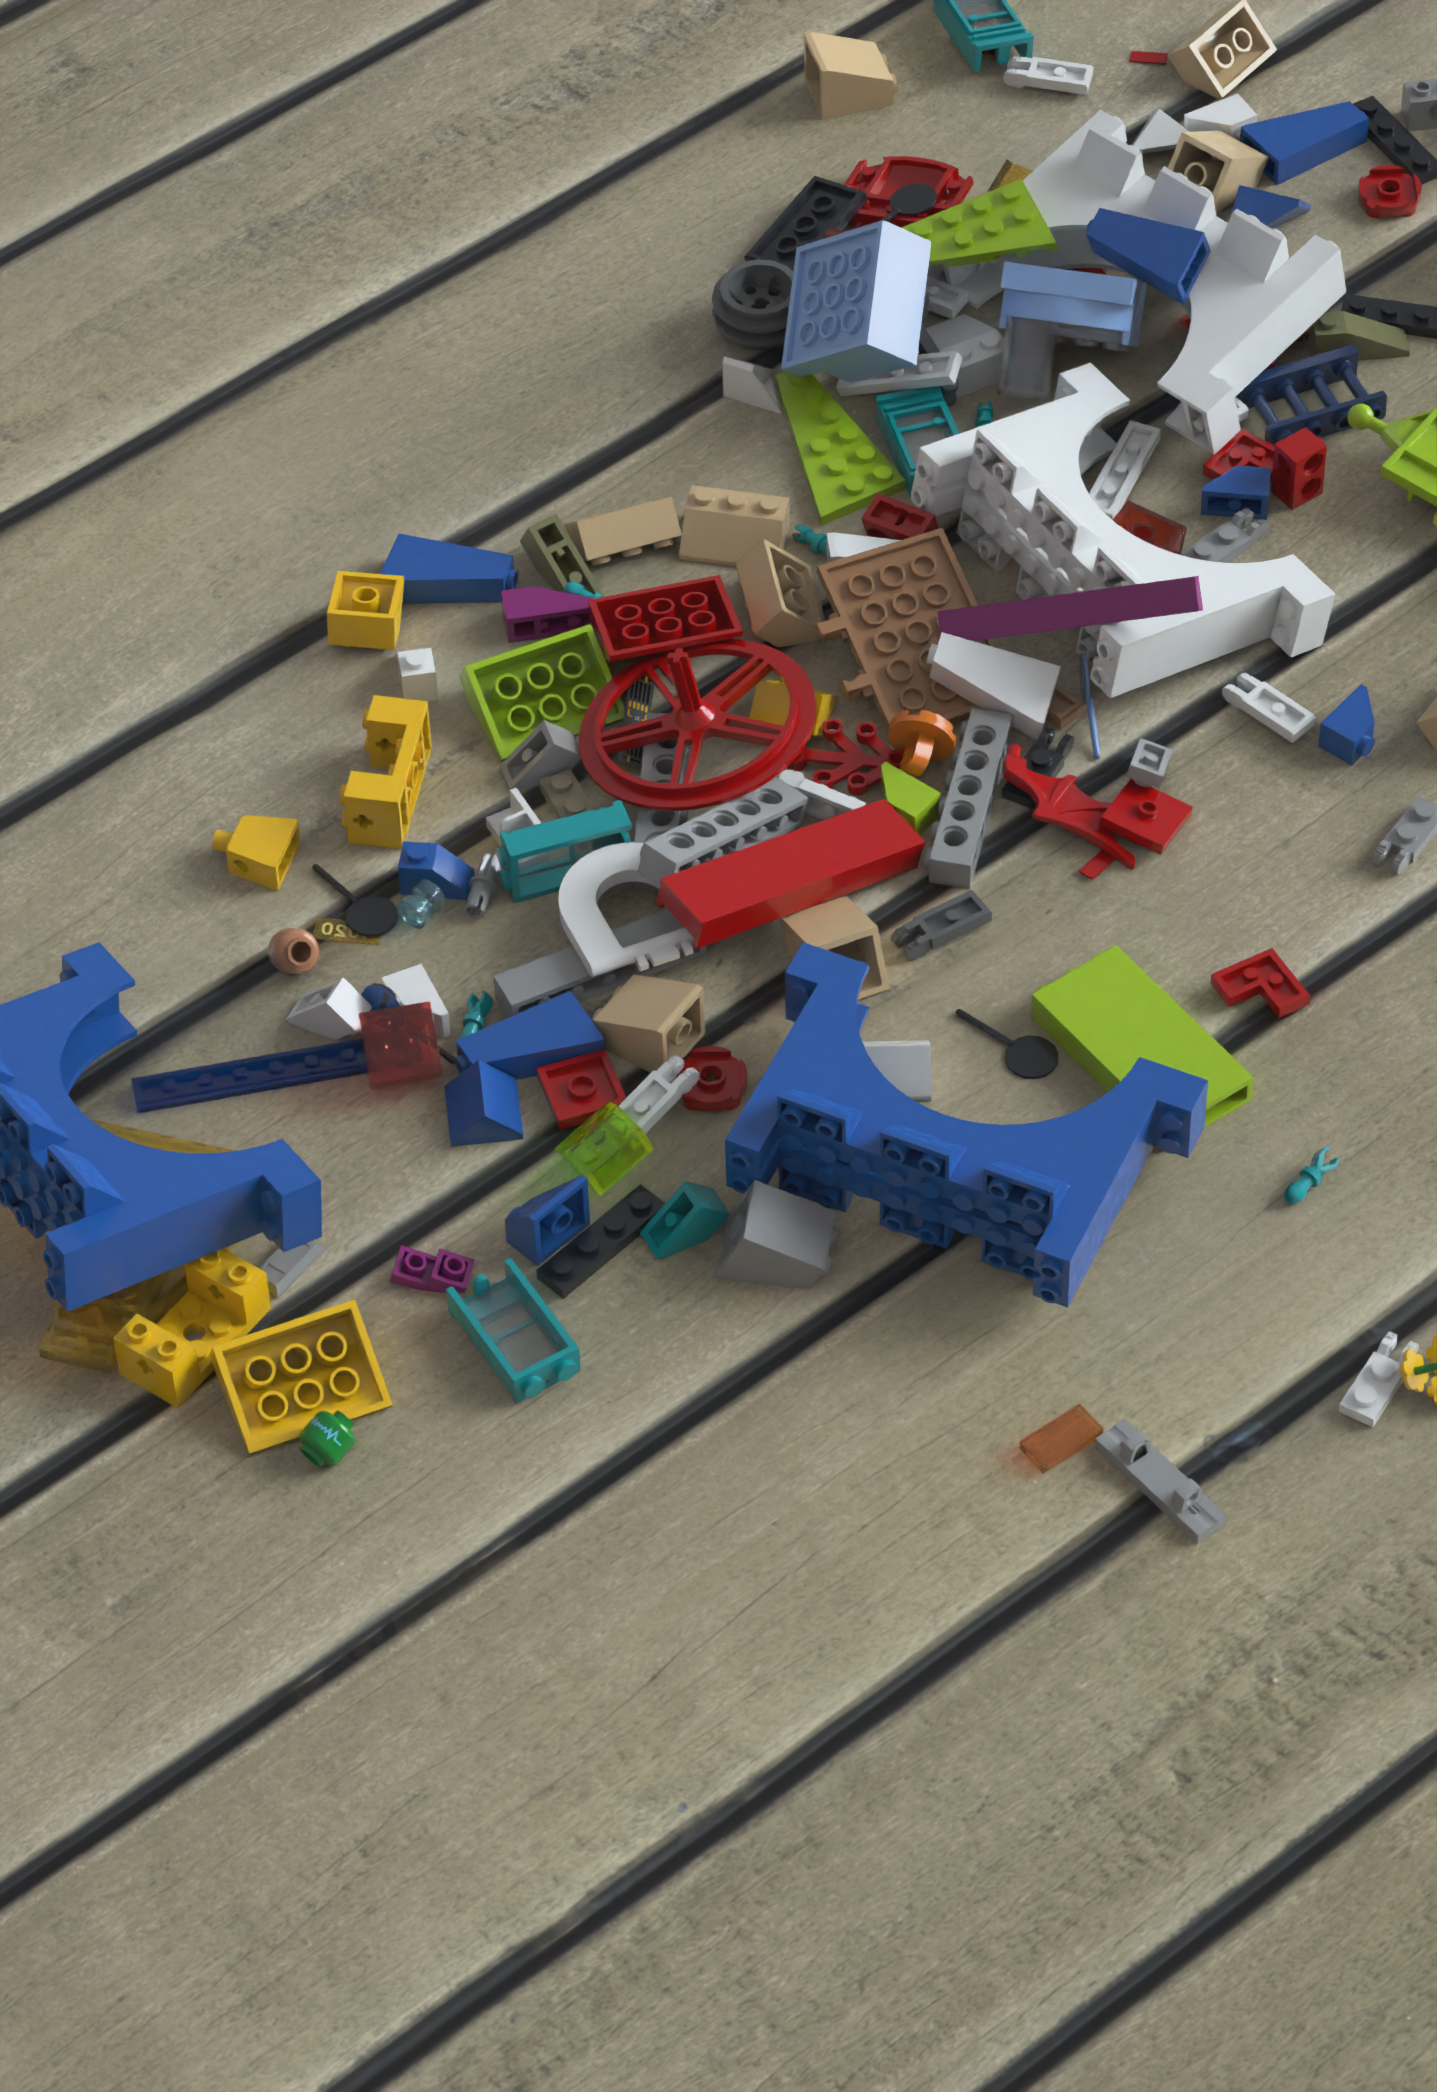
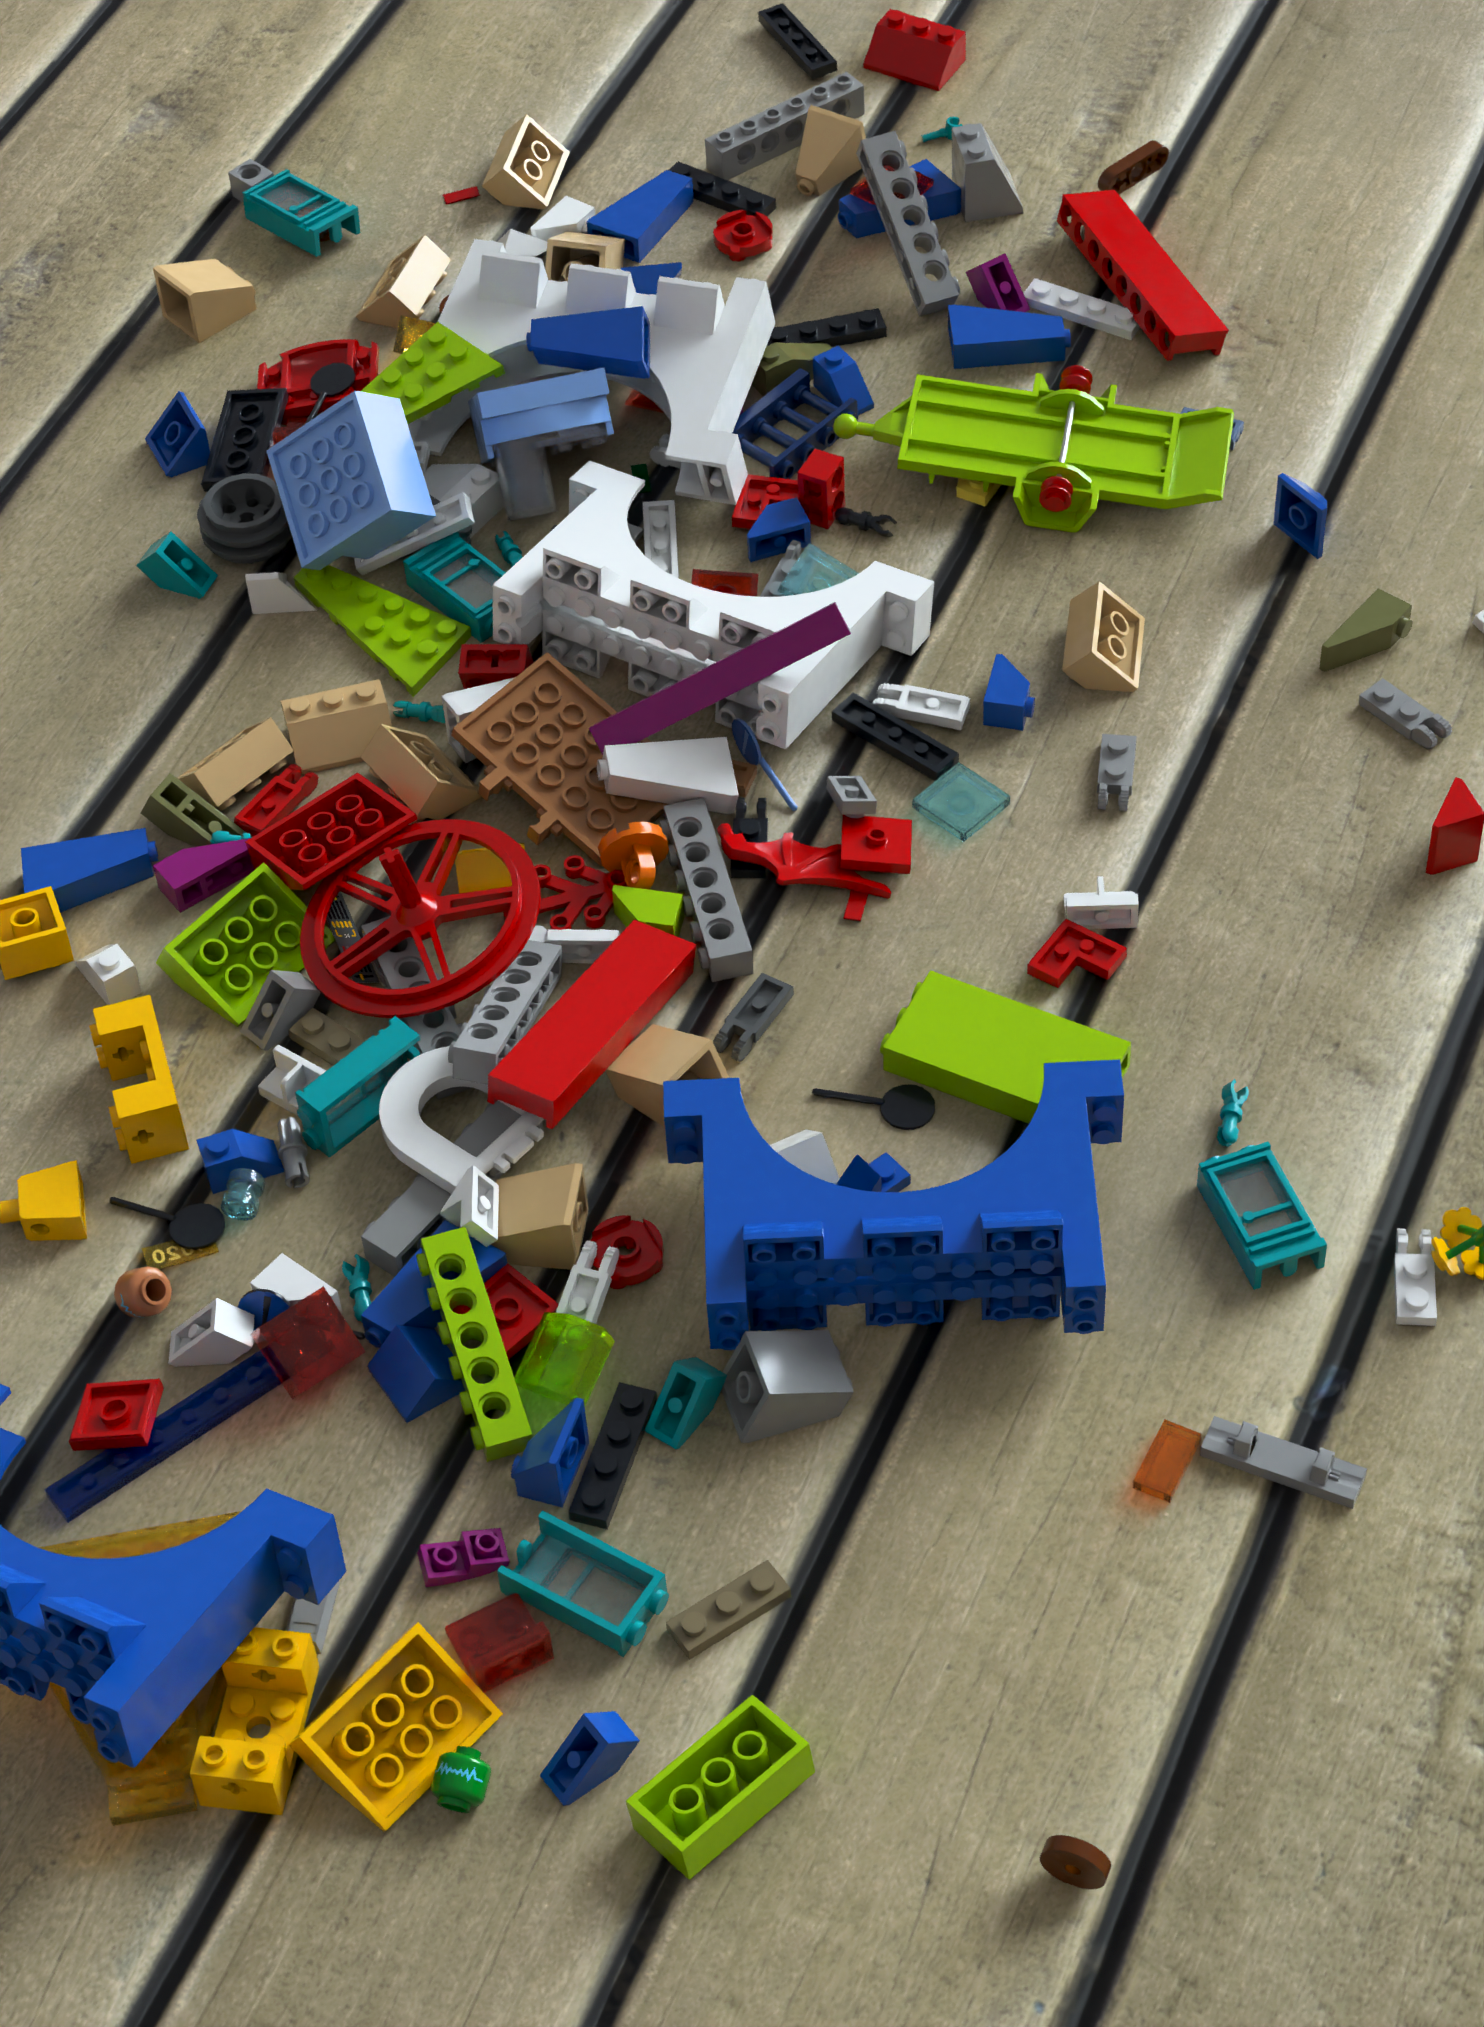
camera: 25 degrees left, 0 degrees up
(219, 1042) = (116, 1414): none -> red plate
(419, 1348) = (500, 1642): none -> clear red bracket
(439, 1463) = (589, 1755): none -> blue slope
(526, 1530) = (720, 1786): none -> lime brick
(555, 1018) = (455, 1253): none -> lime brick
(598, 988) = (475, 1206): none -> white slope
(621, 1401) = (728, 1609): none -> dark tan plate
(645, 572) = (276, 800): none -> red hinge
(677, 328) = (176, 567): none -> teal slope
(746, 206) = (179, 438): none -> blue slope
(773, 1708) = (1075, 1862): none -> reddish brown piece
(965, 1104) = (878, 1176): none -> blue slope
(1039, 130) = (406, 284): none -> tan slope
(1048, 74) = (382, 237): white hinge -> none
(1147, 397) = (640, 471): none -> dark green piece
(1226, 726) = (895, 736): none -> black plate
(1242, 544) = (814, 572): none -> clear light blue tile
(1250, 808) = (961, 801): none -> clear light blue tile
(1276, 1265) = (1259, 1212): none -> teal door
(1313, 952) = (1102, 908): none -> white panel
(1327, 513) = (864, 520): none -> black piece
(1389, 370) = (840, 379): none -> blue slope

